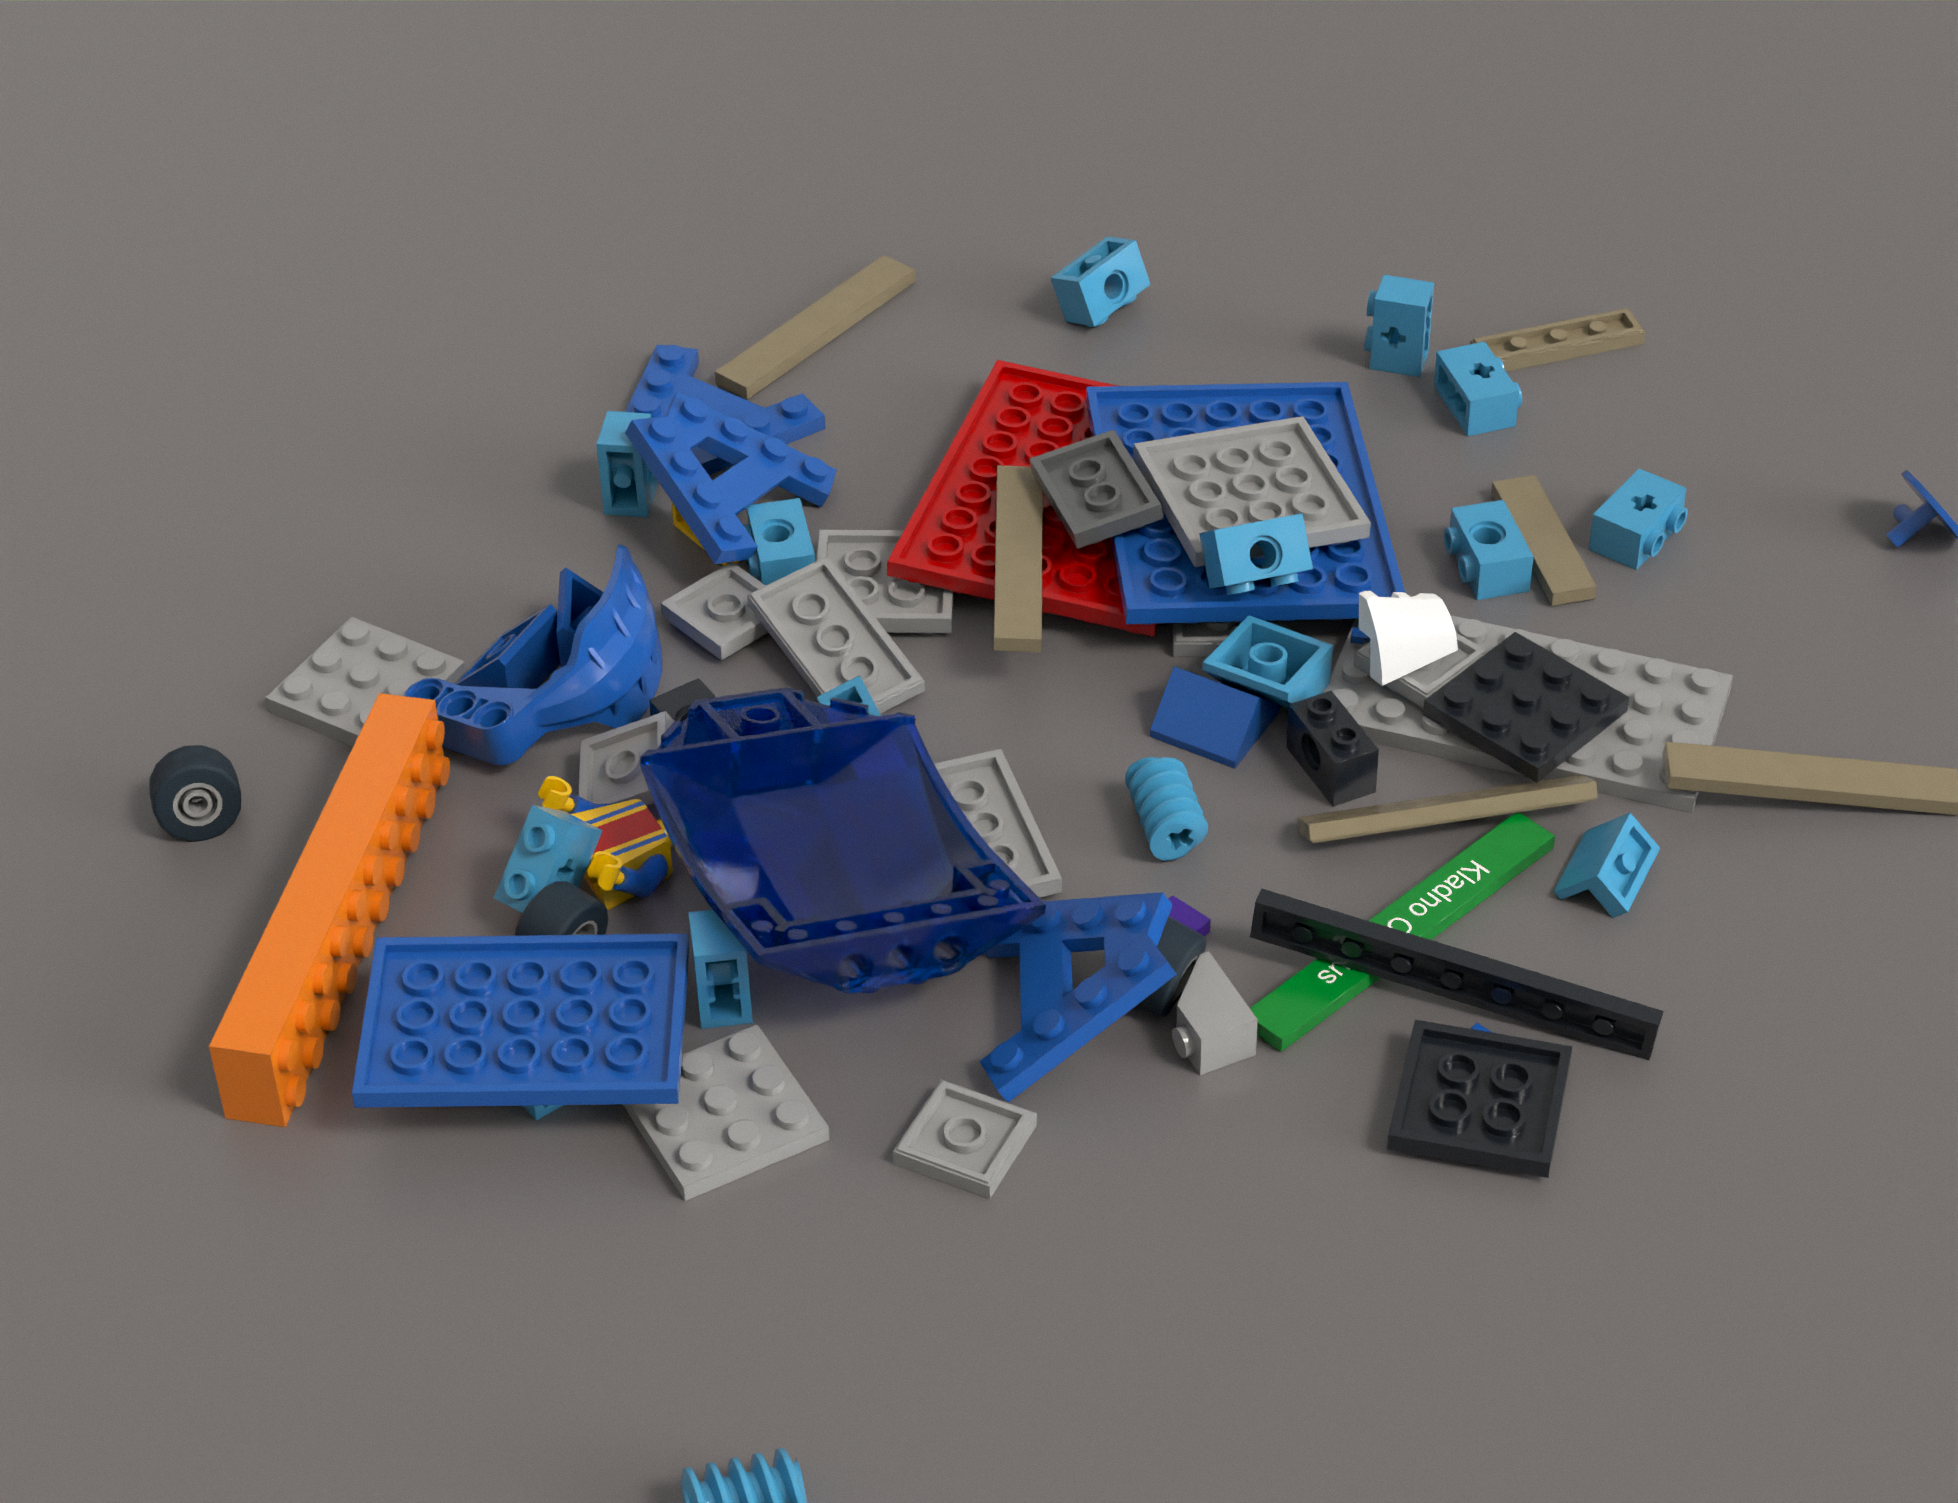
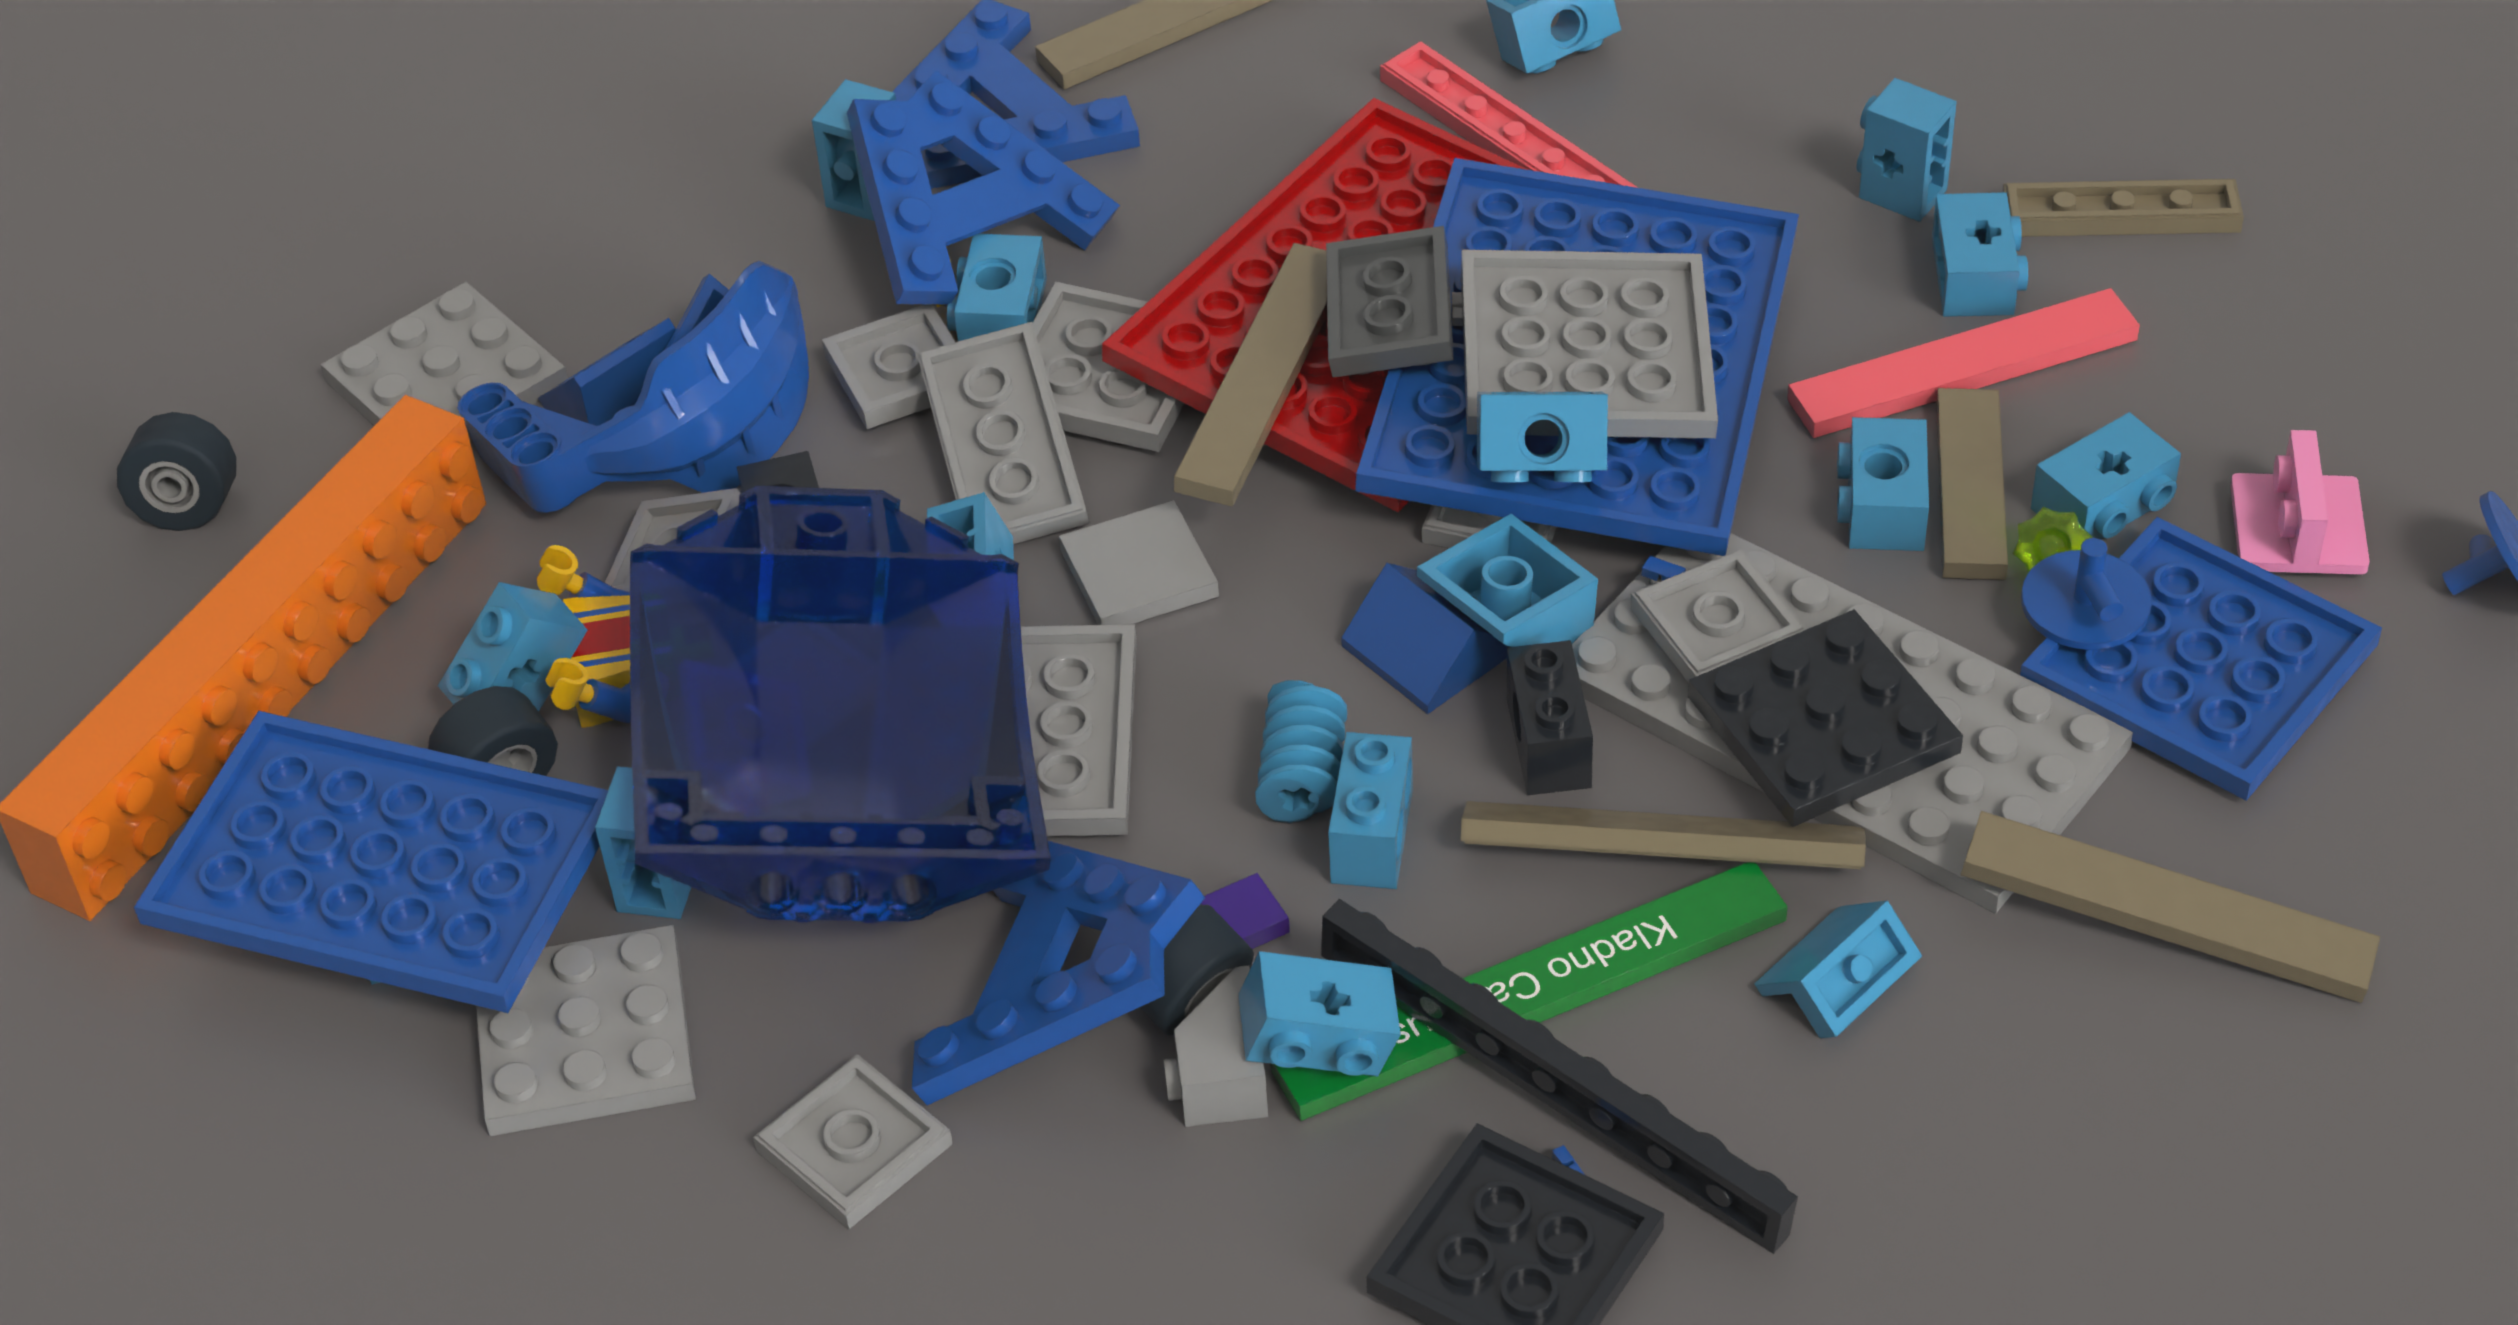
camera: 20 degrees right, 5 degrees up
(977, 711) = (1139, 565): none -> light grey tile
(1057, 354) = (1487, 117): none -> coral tile
(1237, 835) = (1371, 810): none -> dark azure brick
(1278, 969) = (1318, 1014): none -> dark azure brick
(1405, 632) = (1690, 583): white slope -> none
(1498, 460) = (1963, 362): none -> coral tile
(1622, 566) = (2047, 535): none -> clear neon green piece
(1664, 593) = (2086, 598): none -> blue shield
(1755, 617) = (2221, 668): none -> blue plate
(1776, 514) = (2299, 516): none -> bright pink bracket

